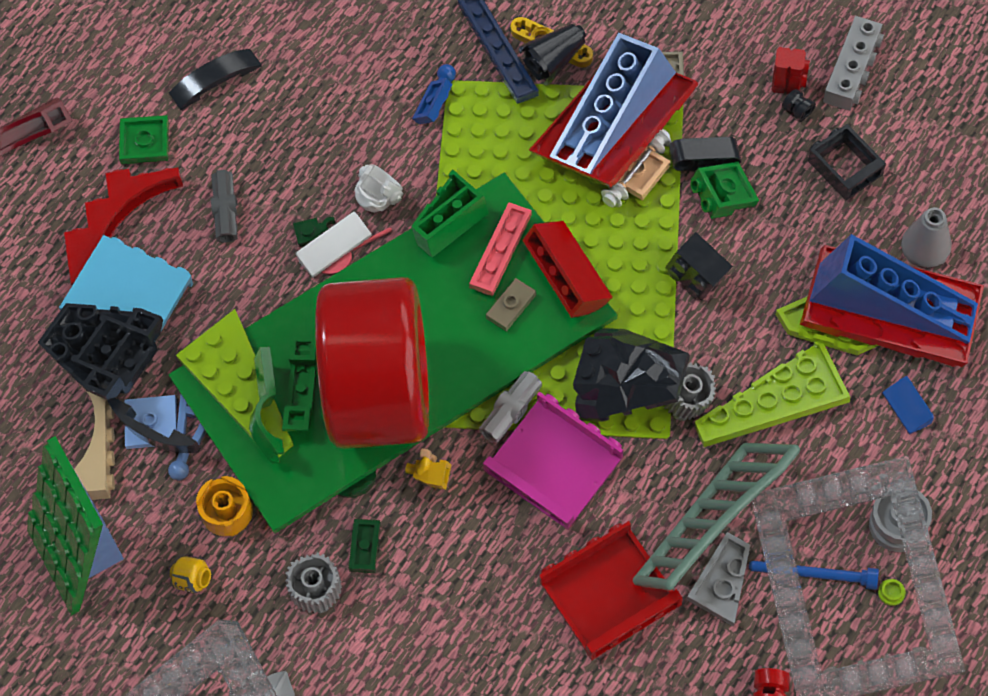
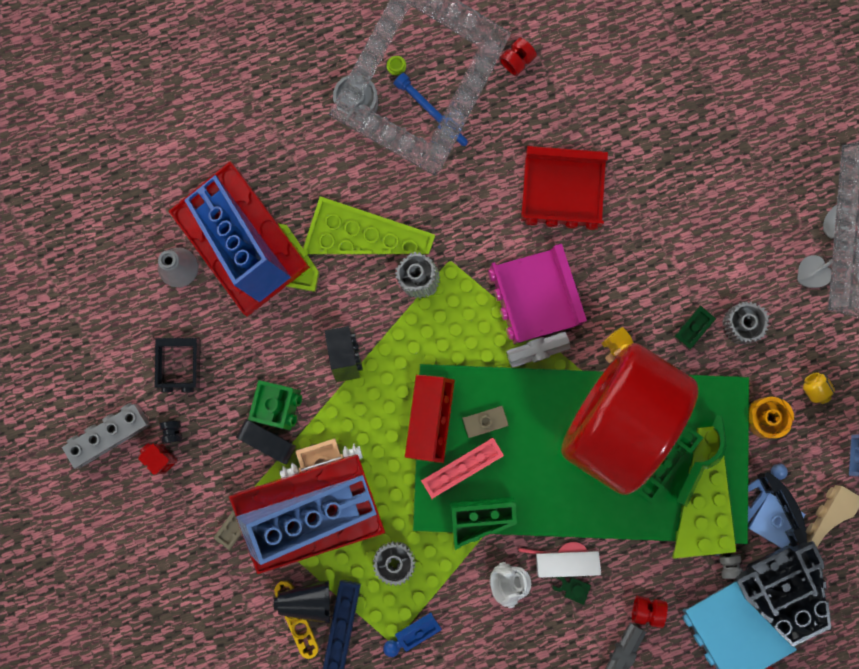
camera: 150 degrees left, 20 degrees up
(169, 346) = (731, 566): none -> light grey wheel
(216, 257) = (649, 611): none -> red wheel
(500, 132) = (383, 557): none -> light grey brick
(626, 373) = (449, 312): black wedge -> none
(705, 501) = (457, 166): sand green bar -> none
(722, 580) = (494, 143): light grey wing -> none
(908, 405) = (286, 169): blue slope -> none

